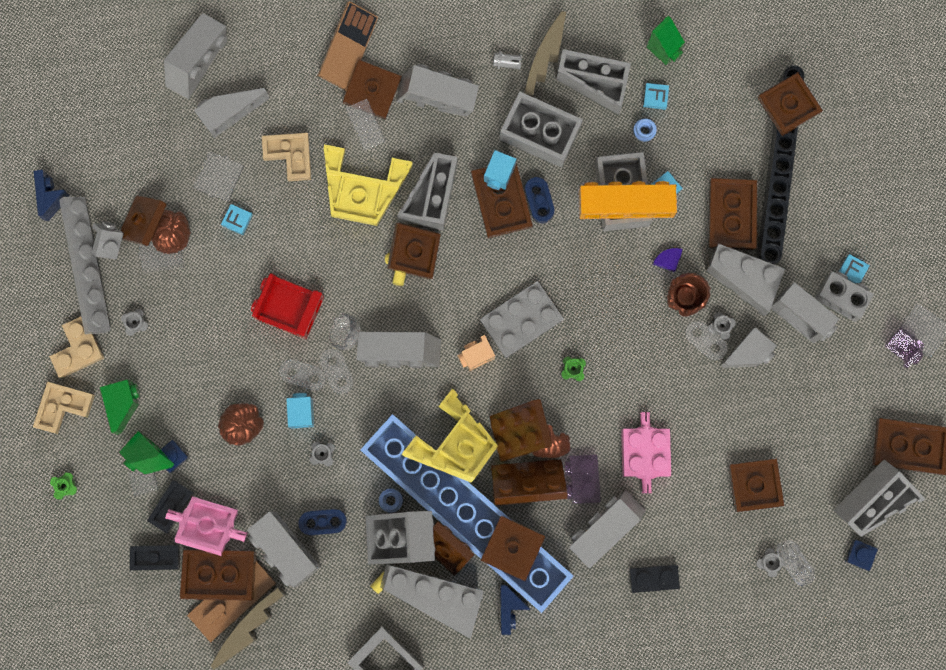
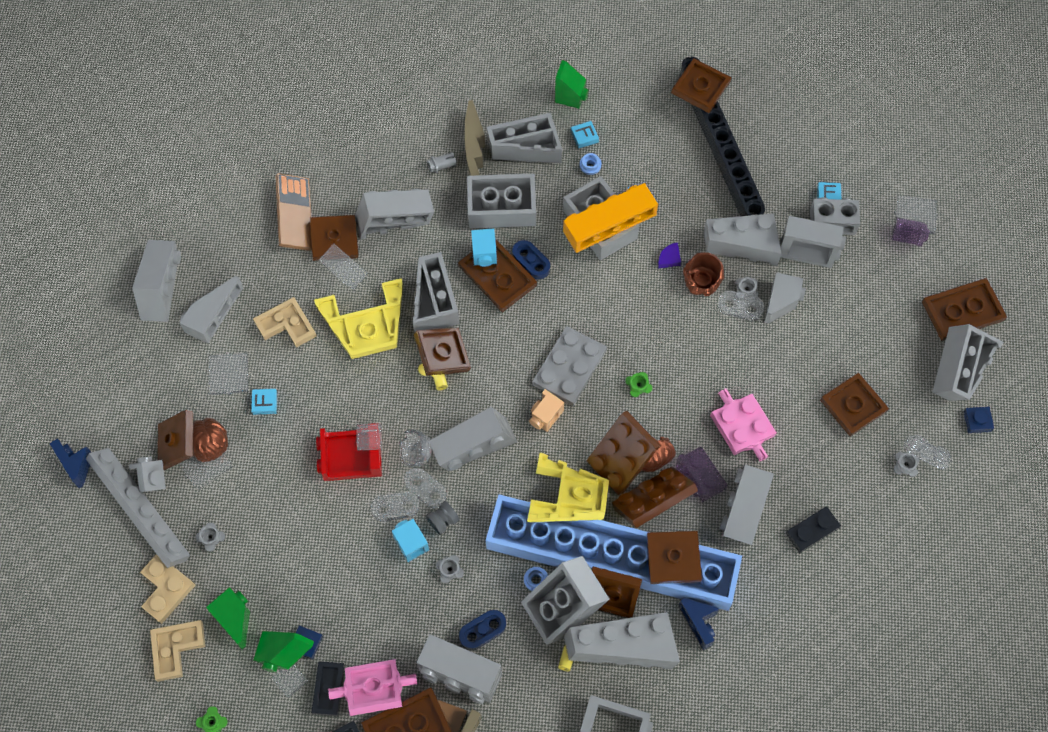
camera: 25 degrees left, 15 degrees down
(240, 423) = (358, 578): copper hair -> none
(307, 303) = (369, 437): none -> clear tile
(337, 406) = (442, 517): none -> dark grey wheel
(732, 213) = (702, 194): reddish brown plate -> none

